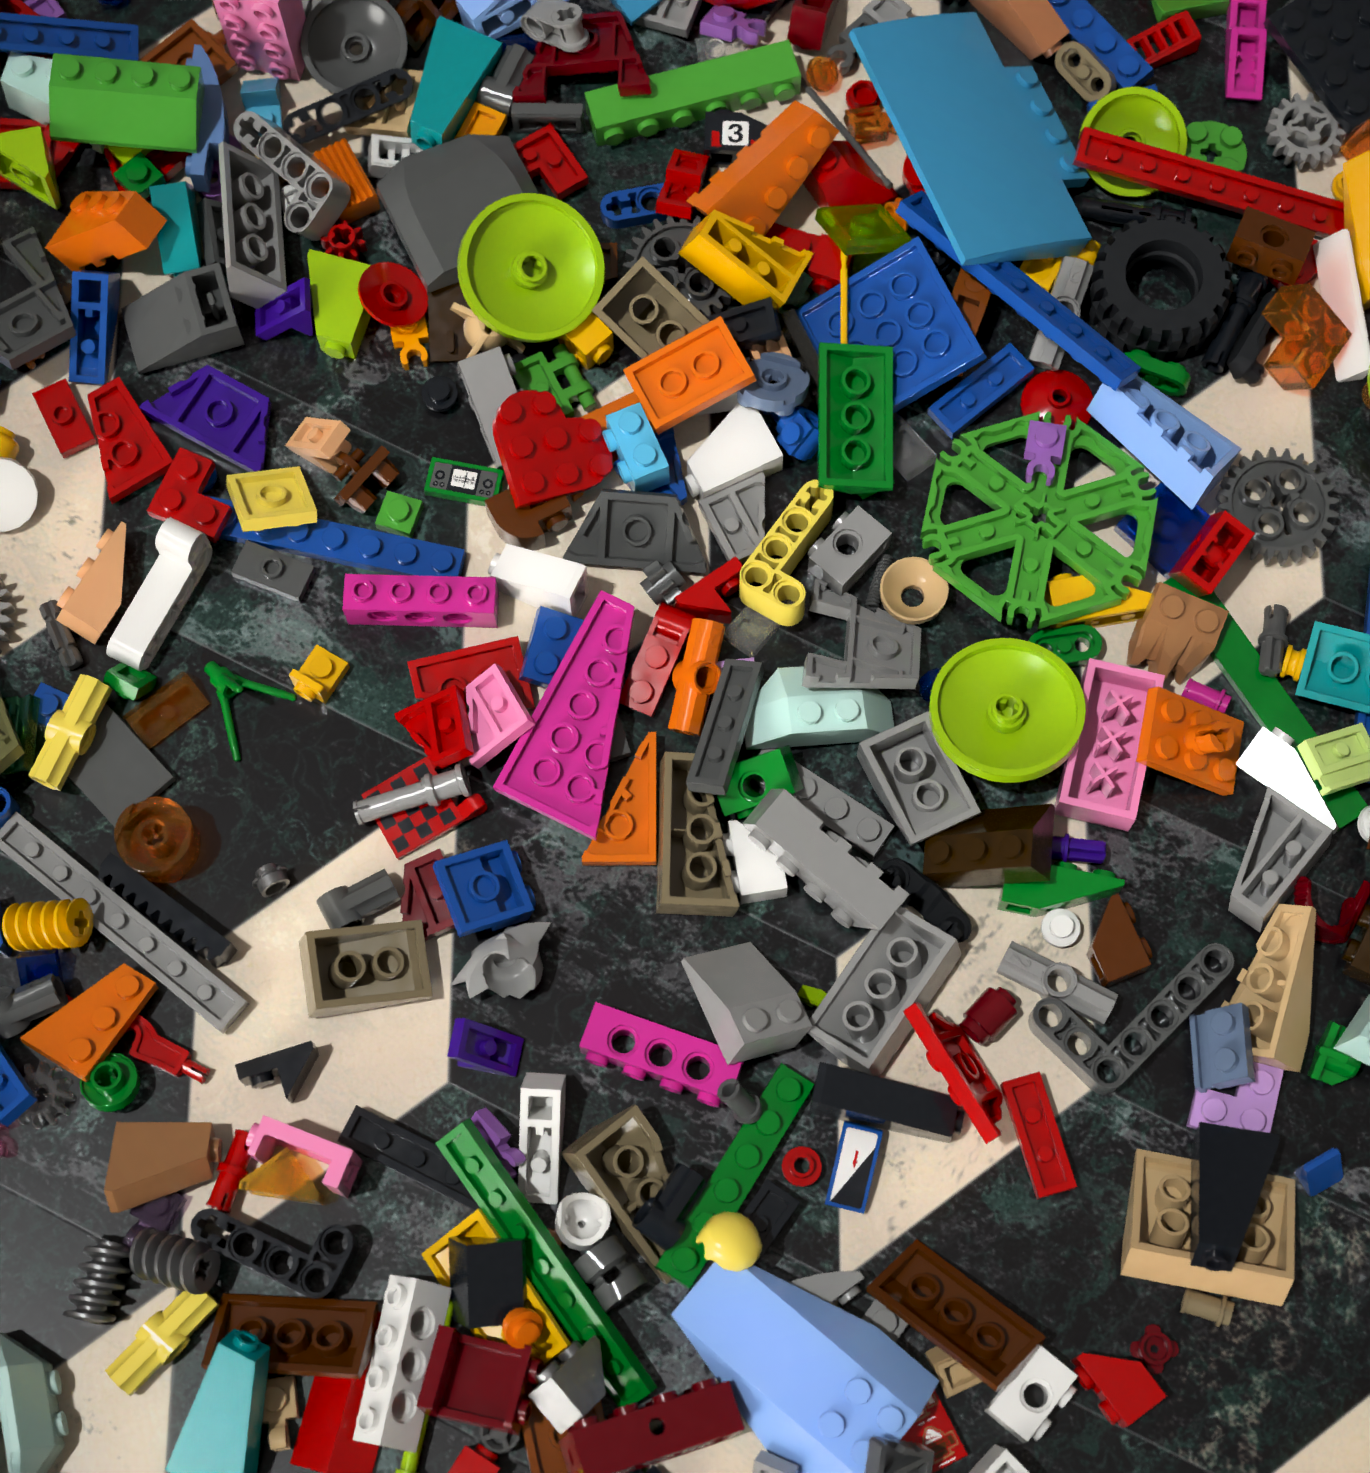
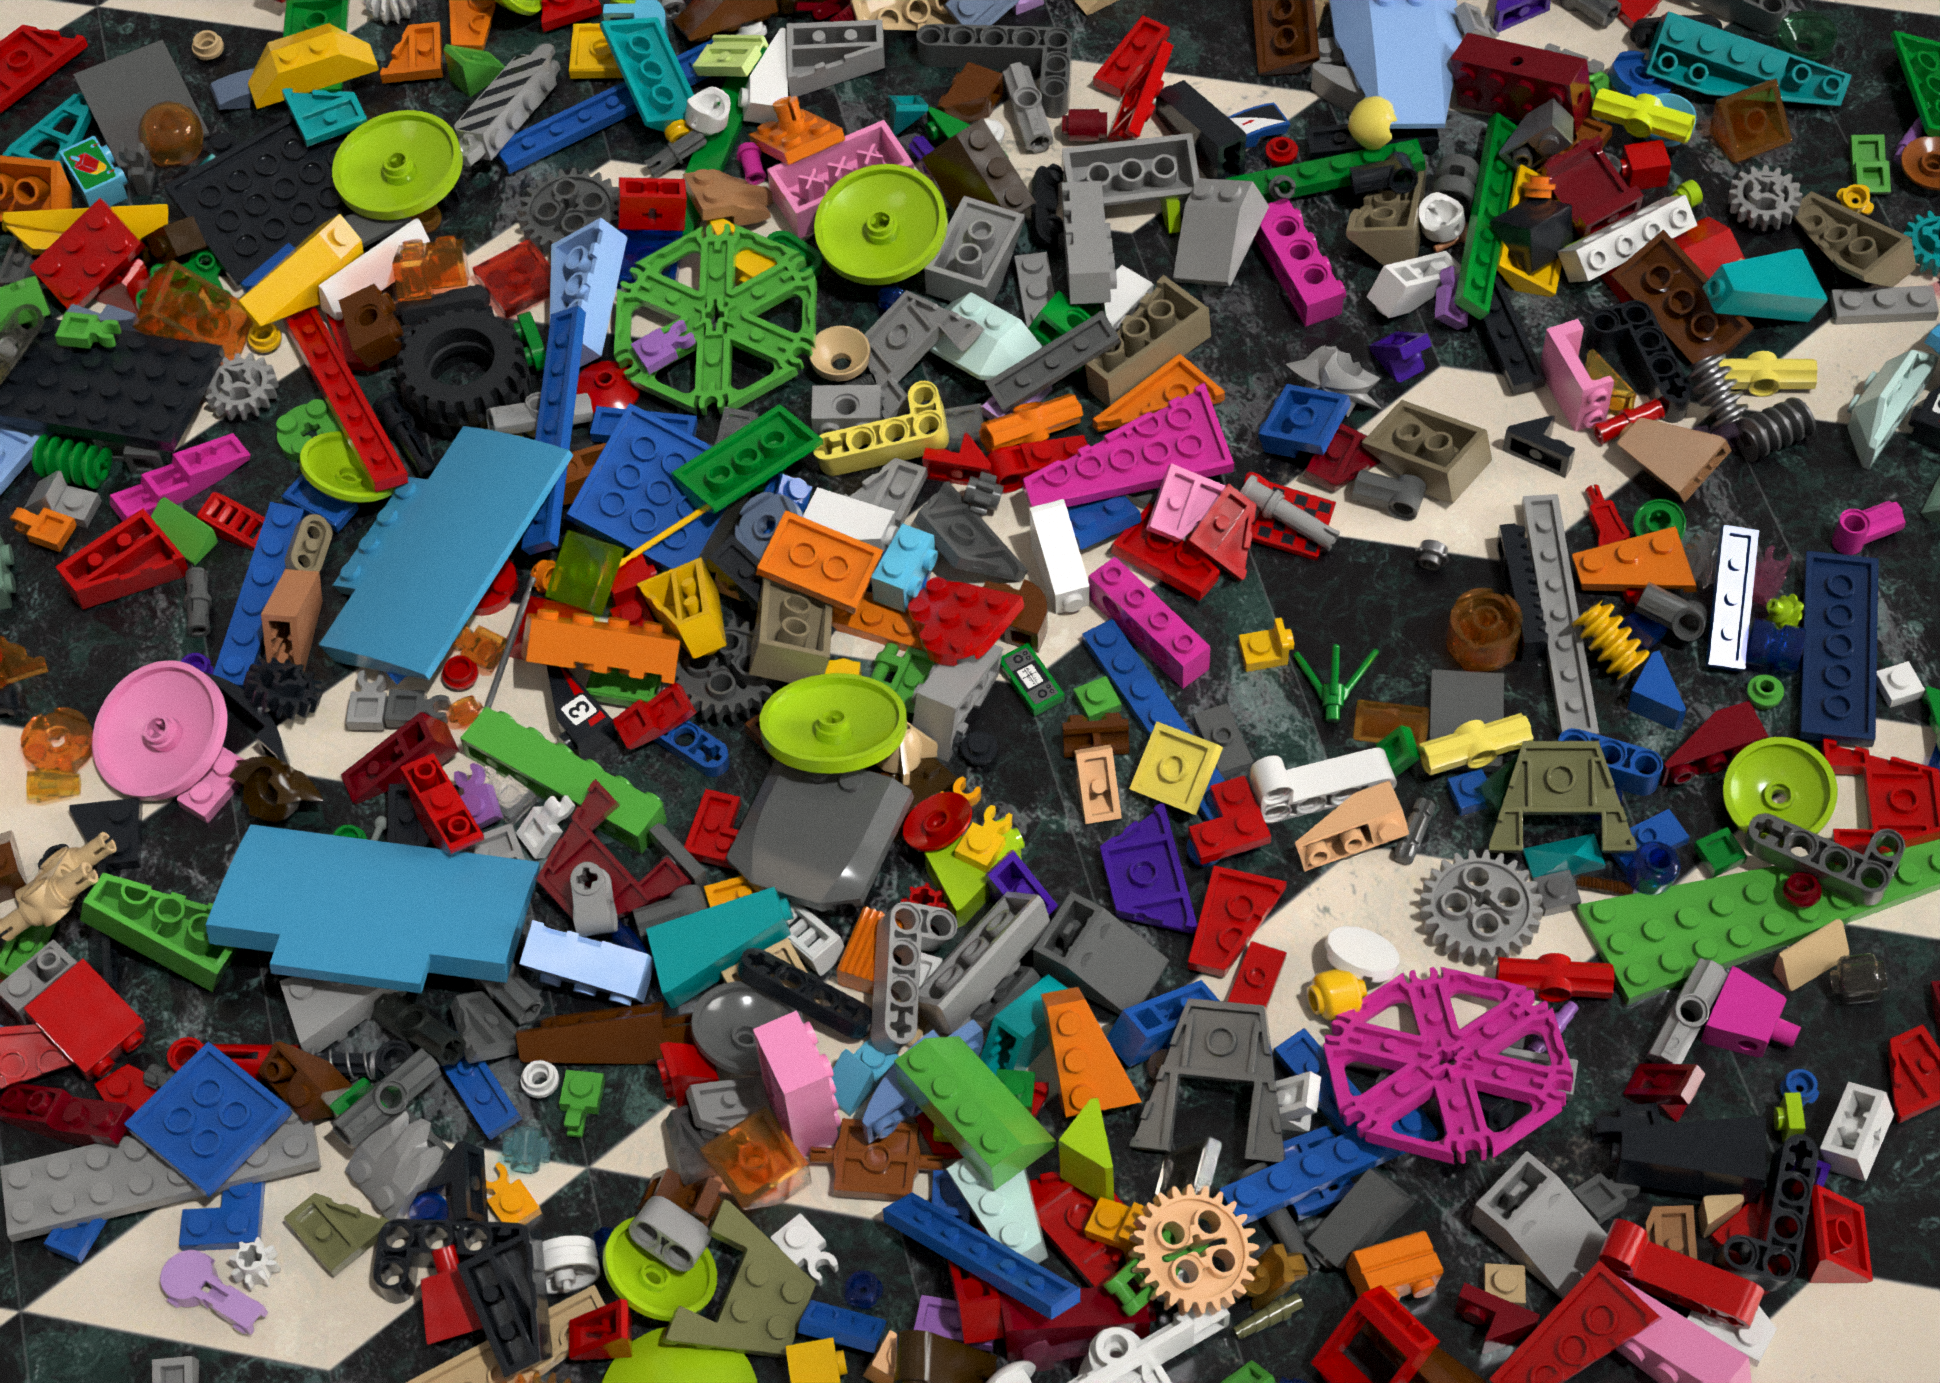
camera: 130 degrees left, 15 degrees down
(341, 307) = (984, 843): none -> yellow plate
(661, 50) = (540, 828): none -> white plate
(1150, 875) = (905, 111): none -> teal slope
(1242, 410) = (515, 278): none -> clear red plate
(1287, 686) = (705, 114): none -> white piece

